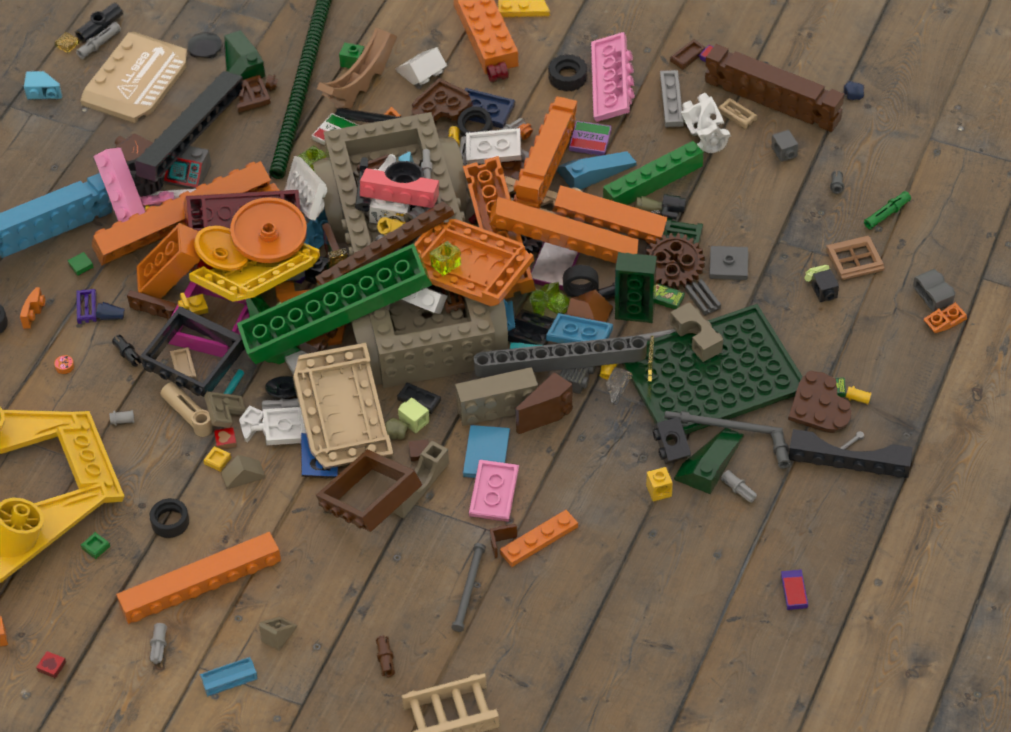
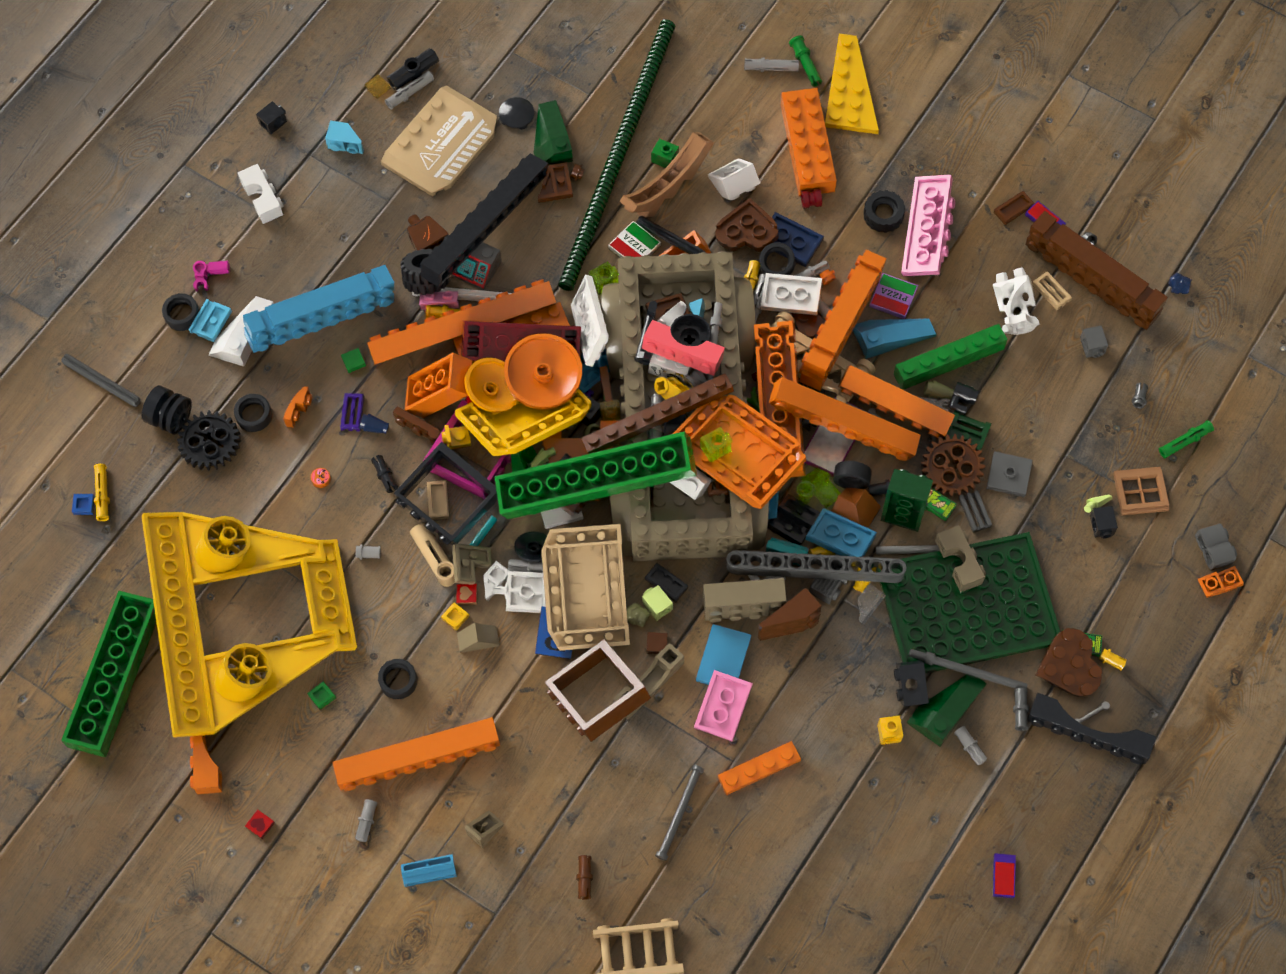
camera: 10 degrees right, 15 degrees up
(119, 183) = (402, 285): bright pink brick -> none
(501, 533) = (721, 756): reddish brown bracket -> none
(651, 357) = (907, 586): clear yellow piece -> none
(671, 98) = (986, 262): light grey plate -> none

